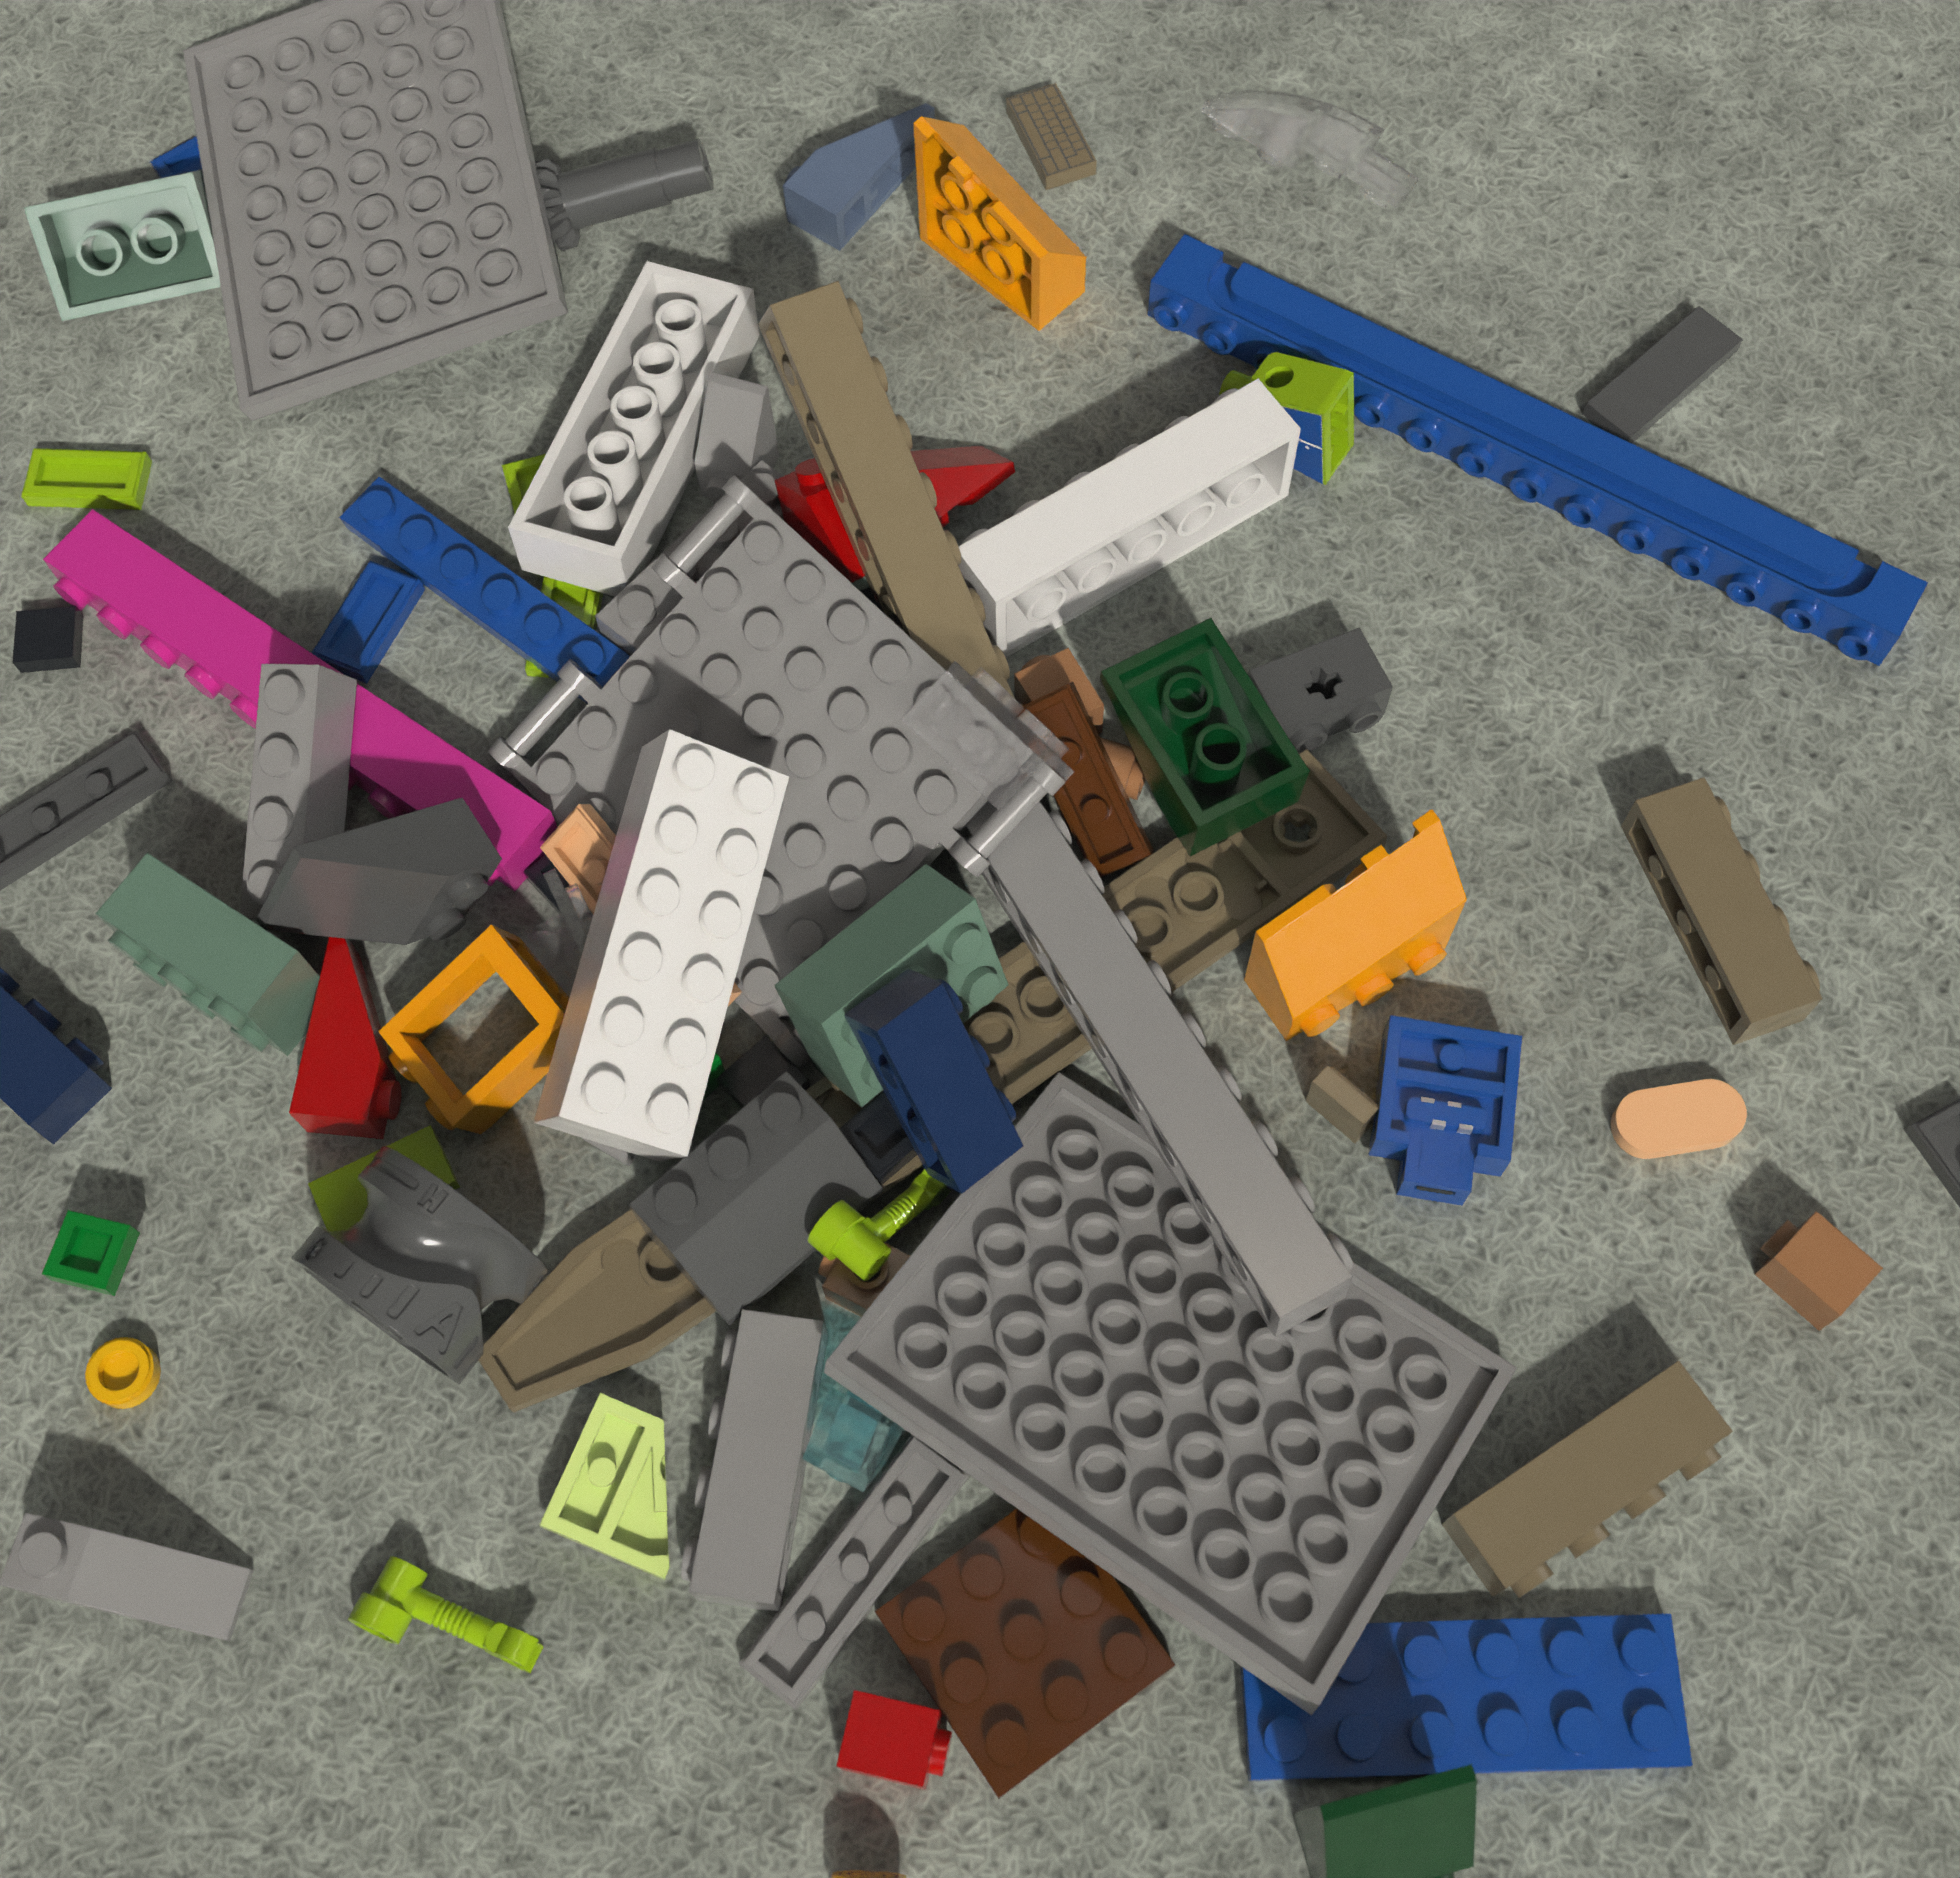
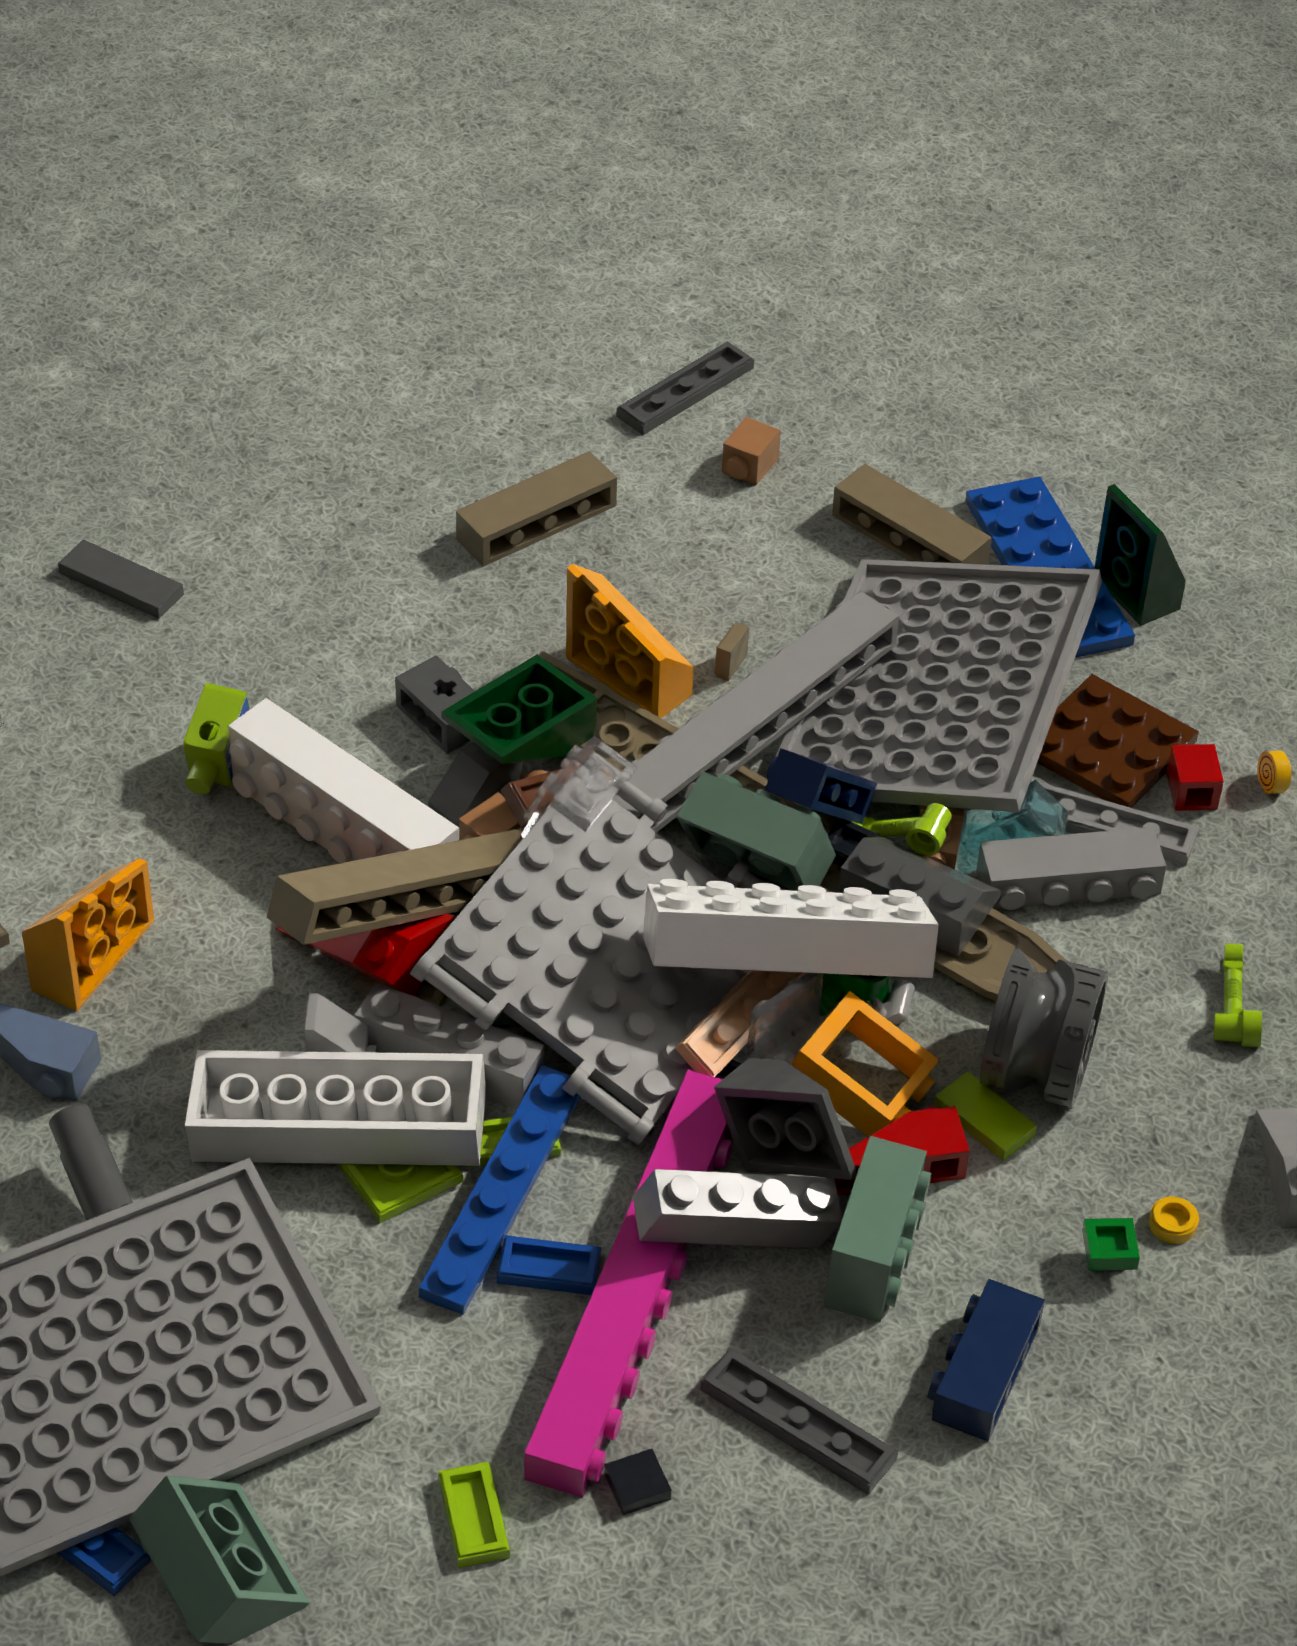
camera: 110 degrees left, 20 degrees down
(616, 1488) = (1118, 937): yellowish green wing -> none
(1444, 1105) = (709, 600): blue piece -> none
(1546, 454) = (199, 646): blue brick -> none
(1678, 1118) = (676, 519): light nougat tile -> none

